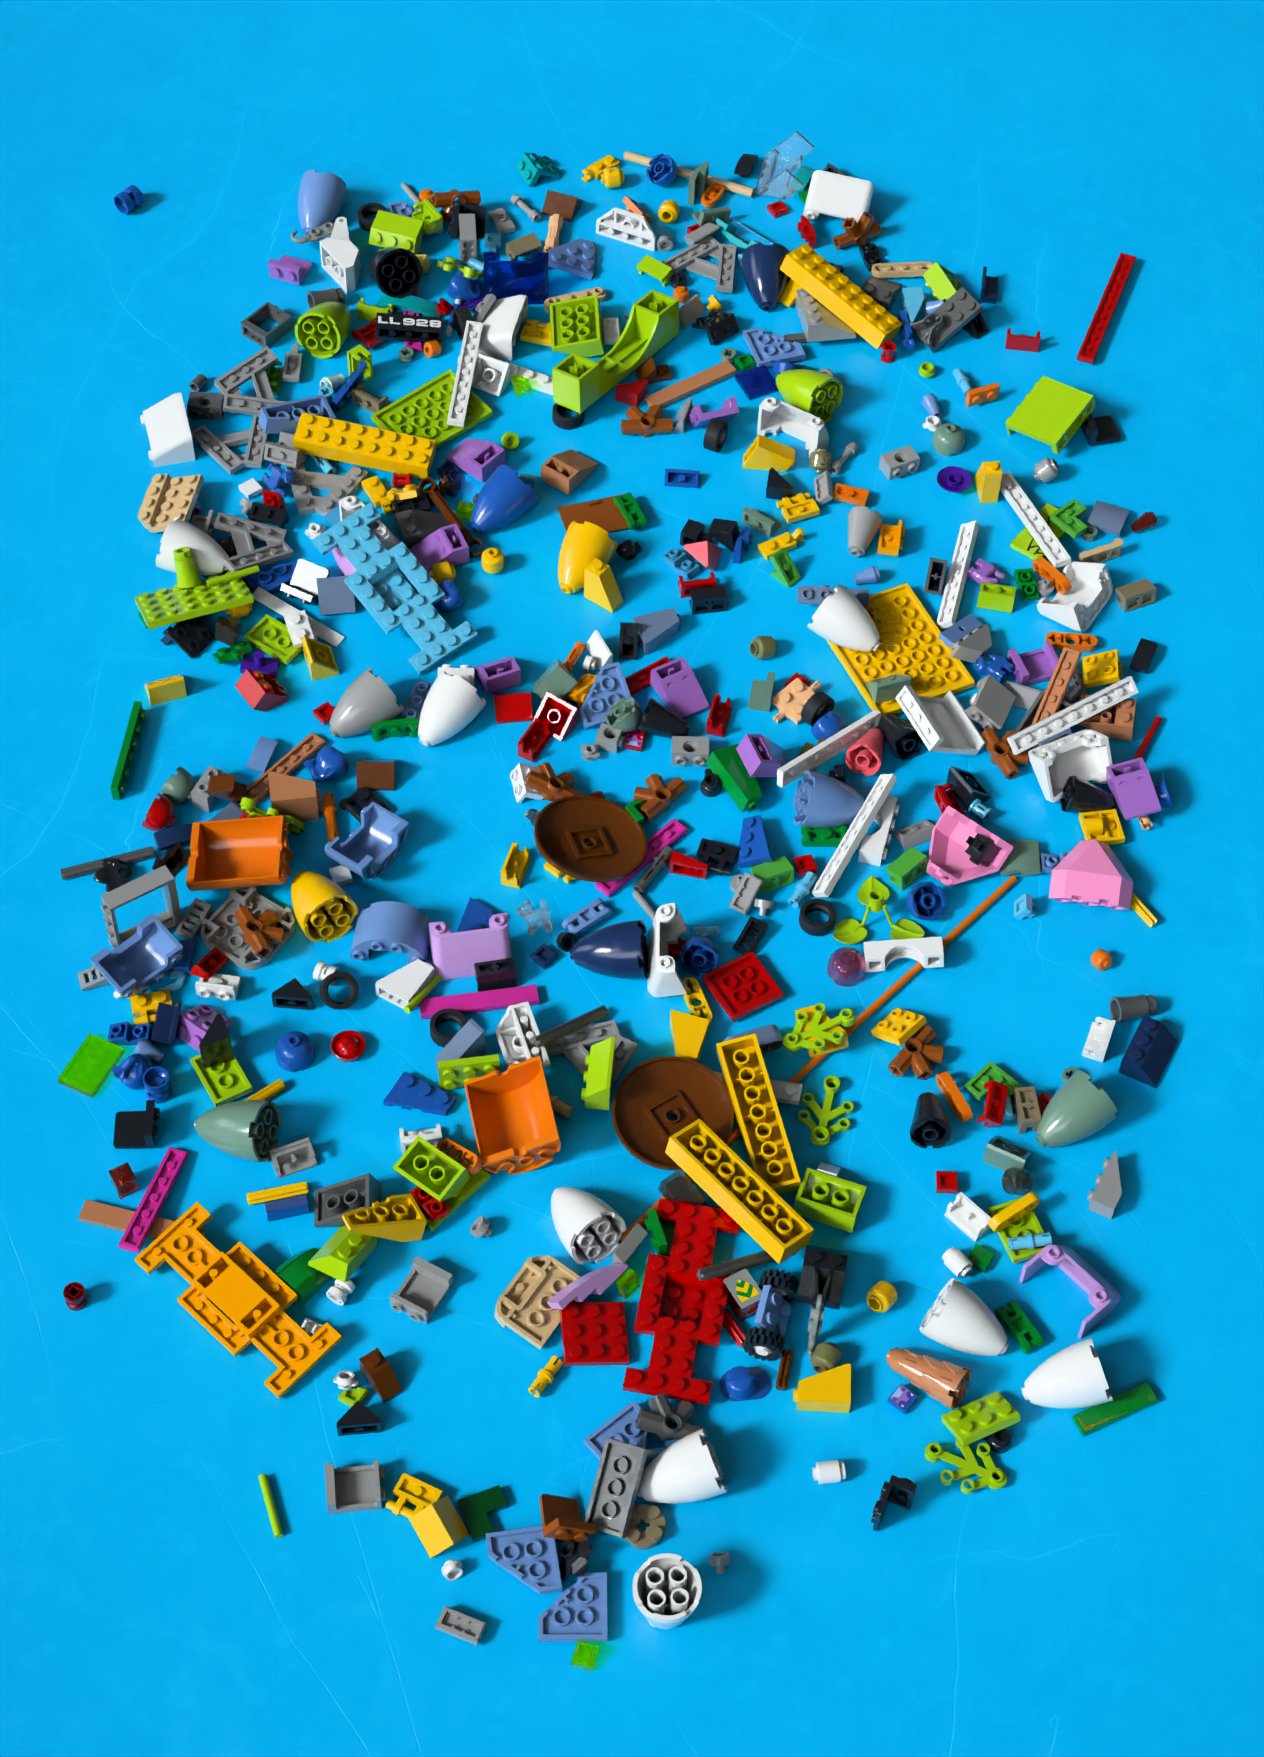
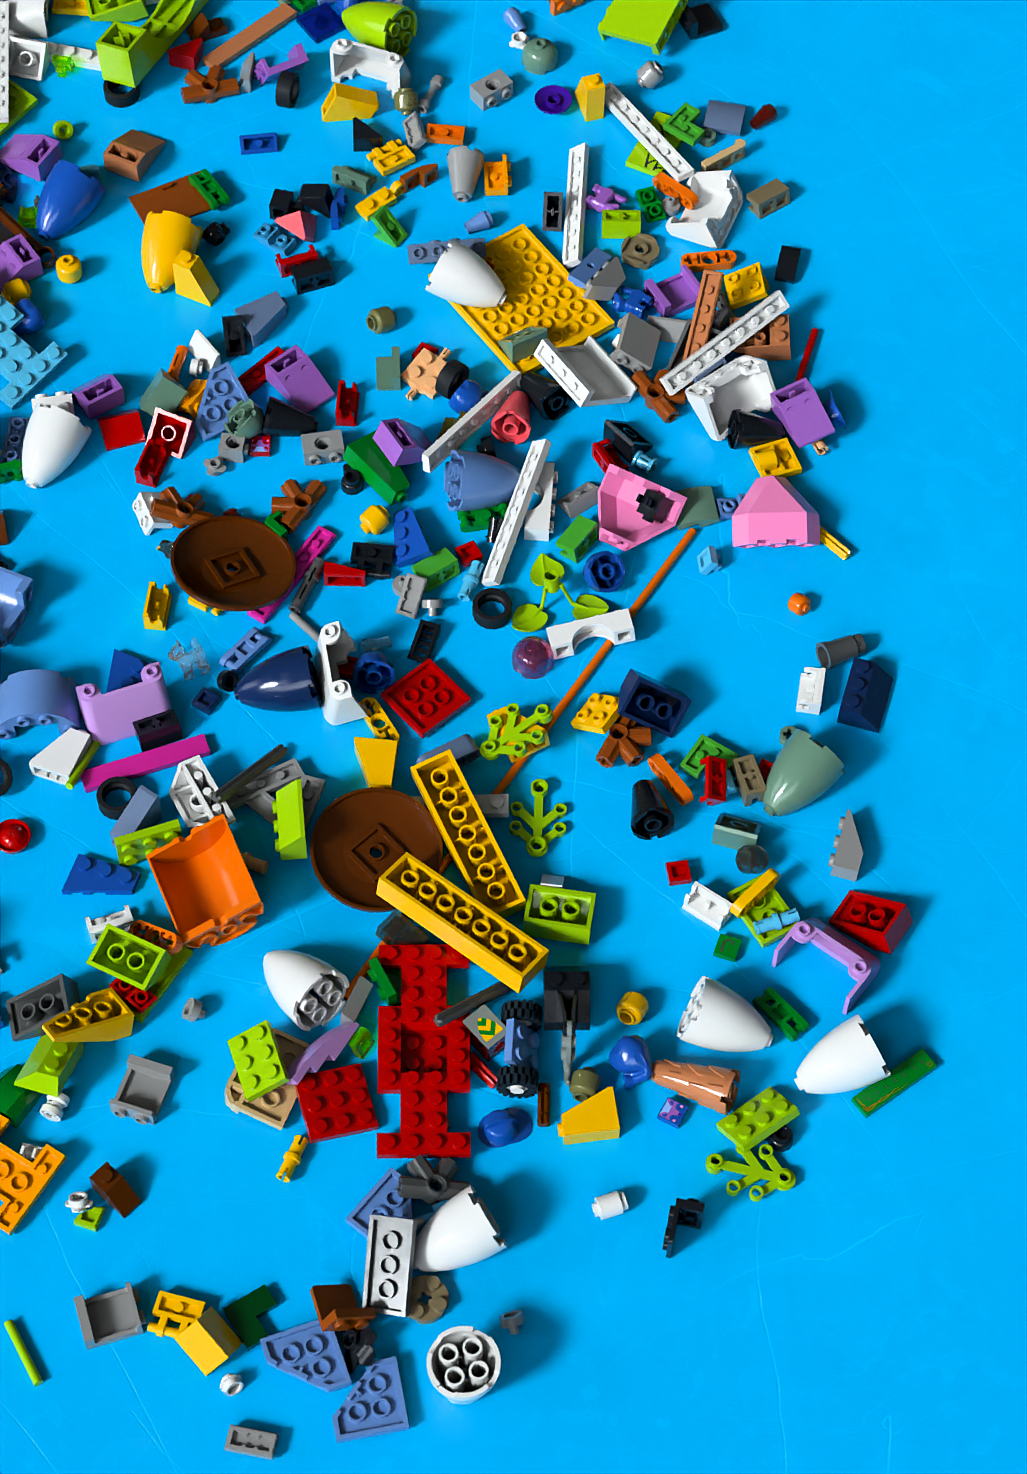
camera: 10 degrees left, 5 degrees up
(358, 1421) = (101, 1243): black slope -> none
(530, 1282) = (258, 1060): none -> lime plate
(585, 1656) = (389, 1448): clear neon green tile -> none
(725, 821) = (374, 519): none -> yellow head
(821, 527) = (421, 175): none -> dark orange slope
(831, 847) = (493, 529): none -> black pin
(873, 1342) = (632, 1059): none -> blue piece
(948, 1025) = (652, 703): none -> dark blue slope
(957, 1262) = (705, 957): white brick -> none
(1008, 631) = (636, 259): none -> dark tan plate
(1120, 1257) = (872, 920): none -> red slope

